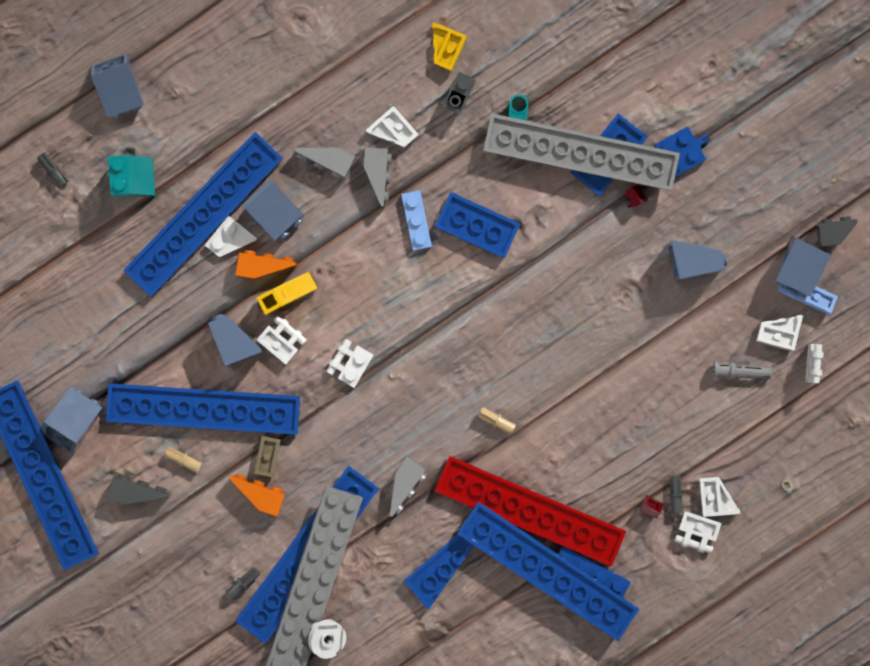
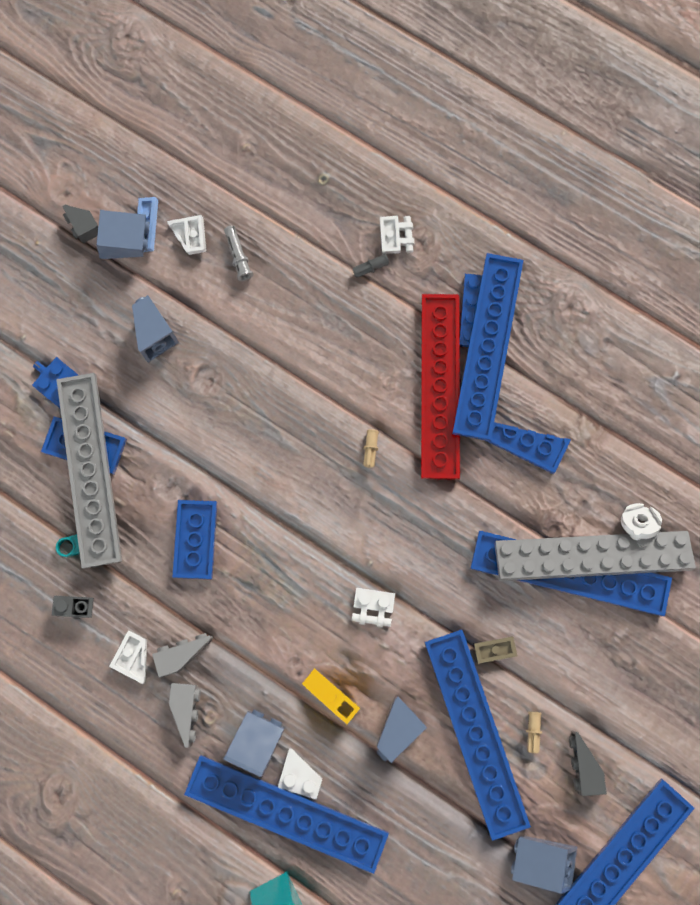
camera: 110 degrees left, 10 degrees down
(242, 583) = (625, 623): dark grey axle -> none
(256, 266) = (316, 735): orange slope -> none
(263, 498) = (536, 637): orange slope -> none
(279, 345) = (384, 682): white plate -> none
(405, 479) = (461, 509): light grey slope -> none
(416, 220) = (212, 599): light blue plate -> none
(447, 46) = (33, 637): yellow wing -> none
(636, 195) = (112, 406): dark red tile -> none
(651, 507) = (391, 280): dark red tile -> none
(715, 498) = (359, 231): white wing -> none
(813, 364) = (205, 193): white plate -> none

